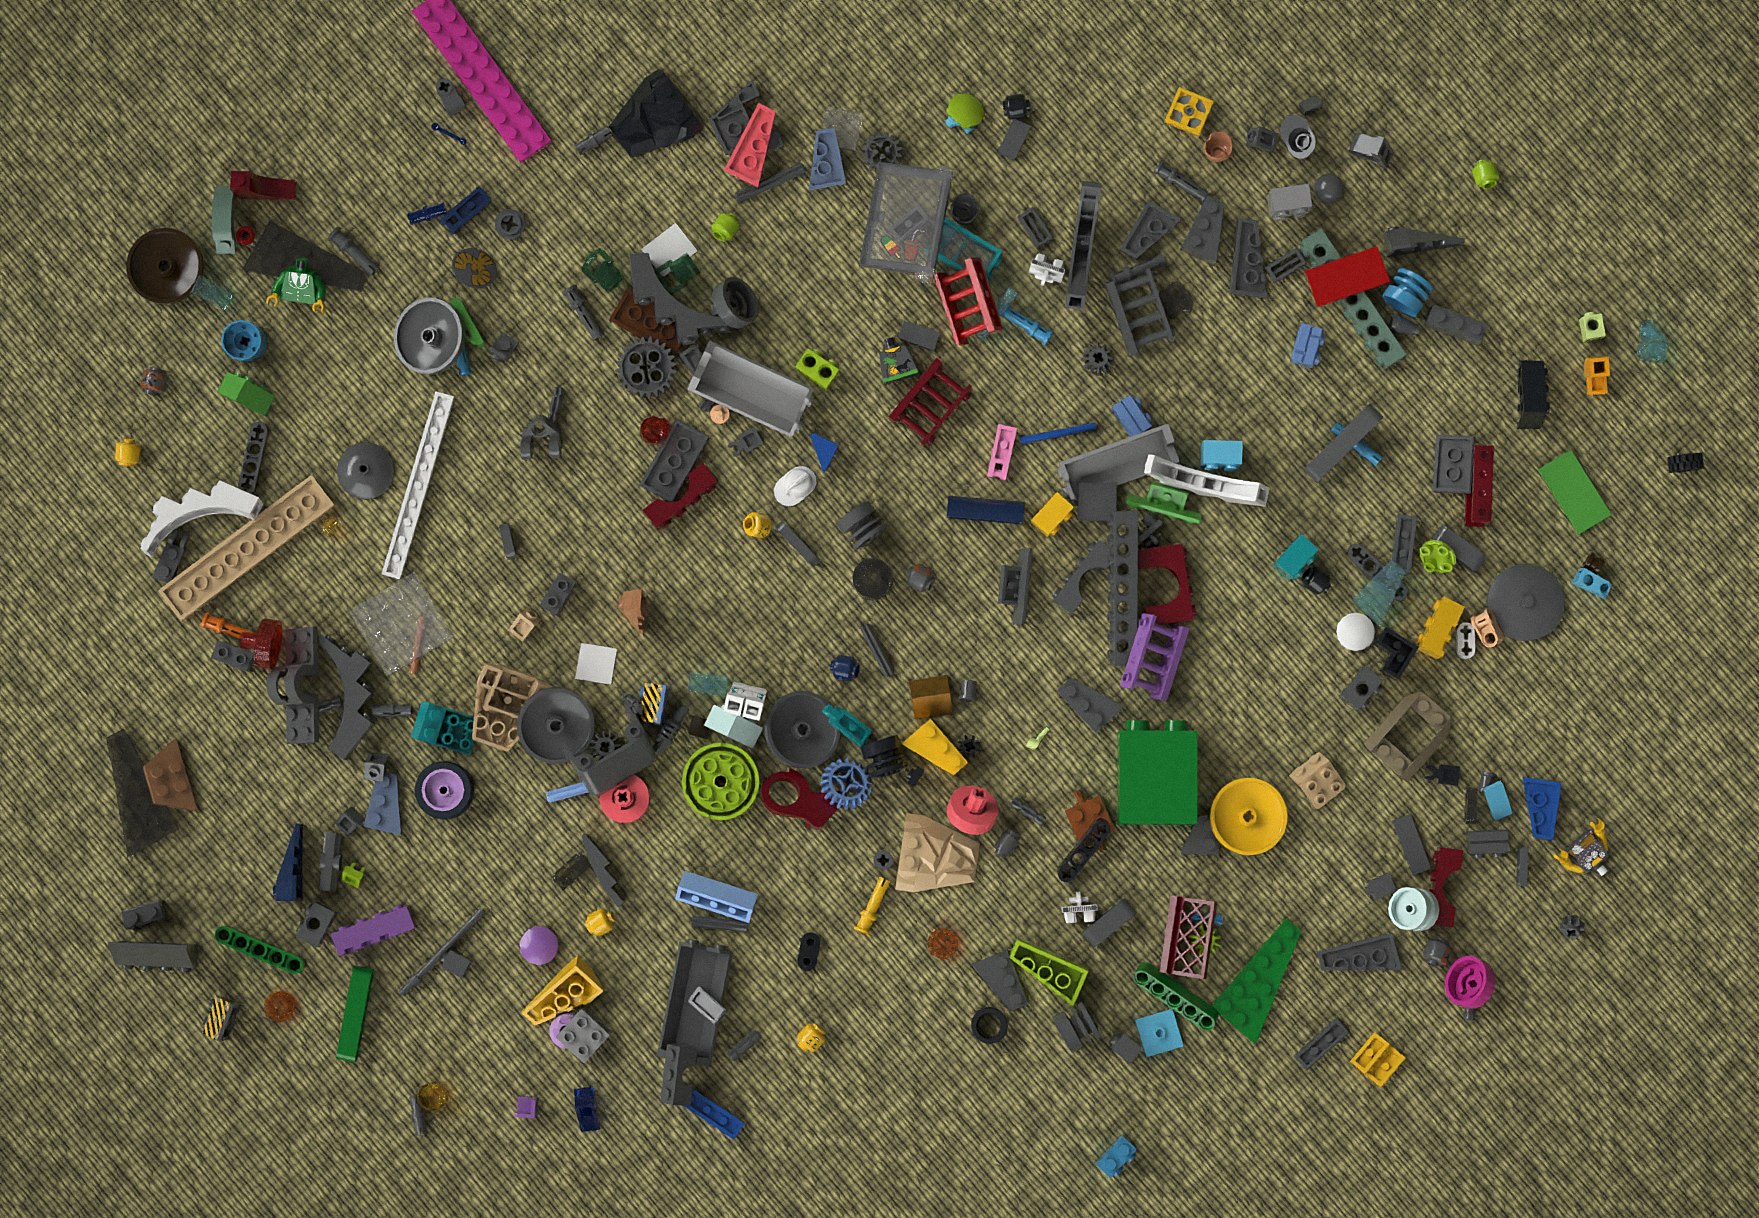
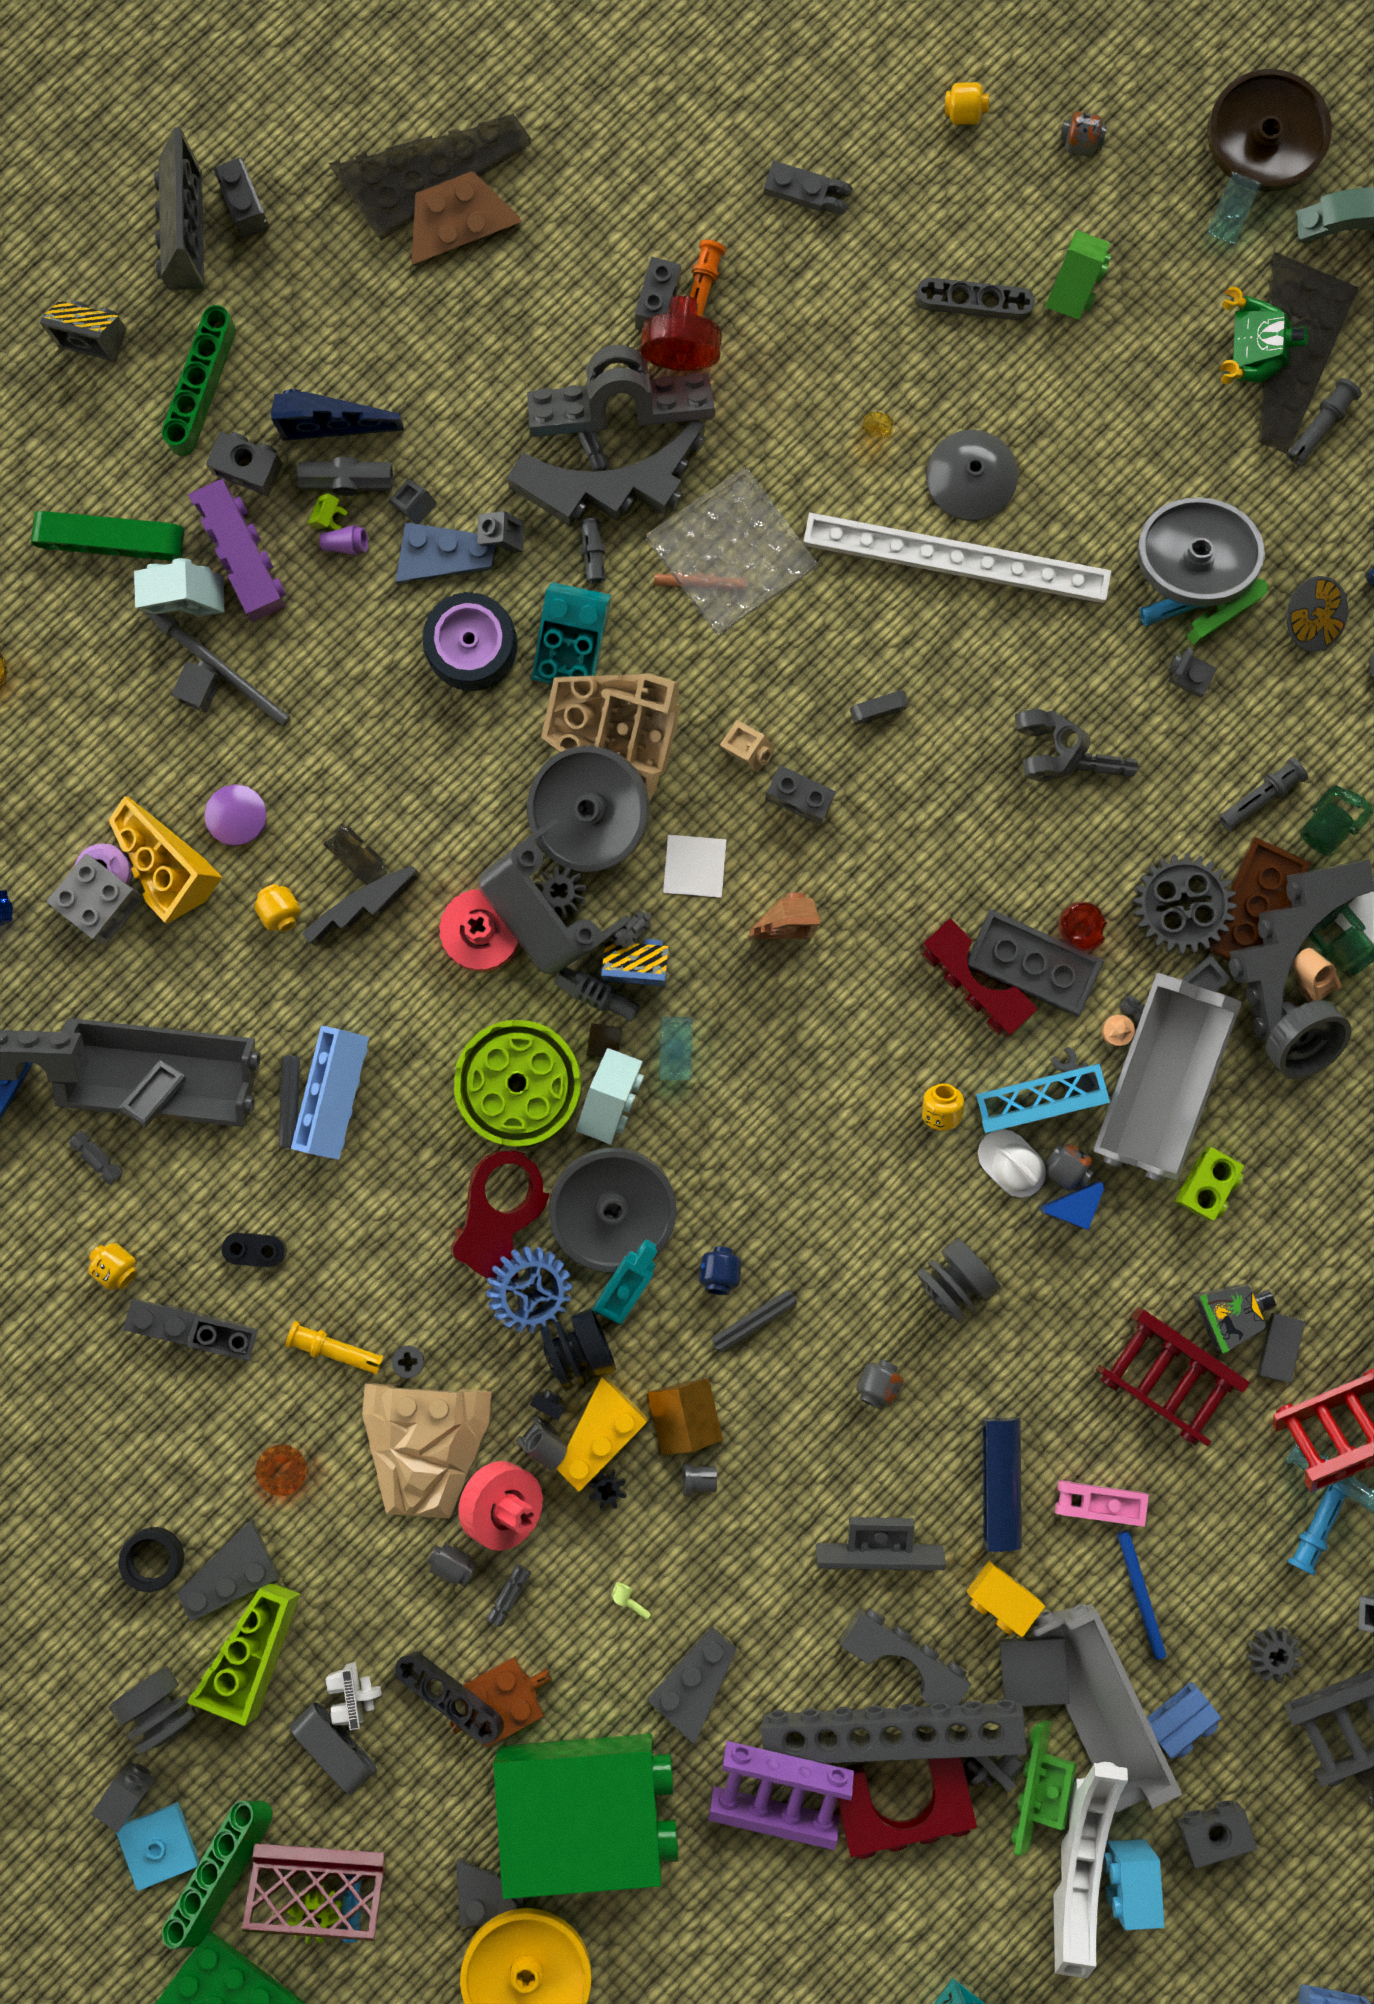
camera: 80 degrees right, 0 degrees up
(195, 504) = (892, 212): white arch -> none
(234, 337) = (1167, 247): dark azure wheel -> none
(241, 231) = (1334, 246): red plate -> none
(246, 548) = (832, 301): tan plate -> none
(287, 1002) = (119, 431): clear orange gear -> none
(371, 864) = (346, 540): none -> medium lavender cone
(394, 967) = (179, 587): none -> light aqua brick
(566, 792) = (482, 835): light blue axle -> none
(696, 293) = (1315, 975): none -> light nougat piece
(745, 696) = (659, 1113): white hips -> none
(763, 457) = (1047, 1109): none -> medium azure fence
(799, 546) = (917, 1175): dark grey beam -> none
(800, 452) = (1069, 1167): none -> dark grey head
(853, 991) = (191, 1328): none -> dark grey slope
(878, 589) = (853, 1314): clear smoke wheel -> none
(939, 782) = (543, 1443): none -> dark grey piece
(1198, 392) = (1232, 1841): none -> dark grey brick

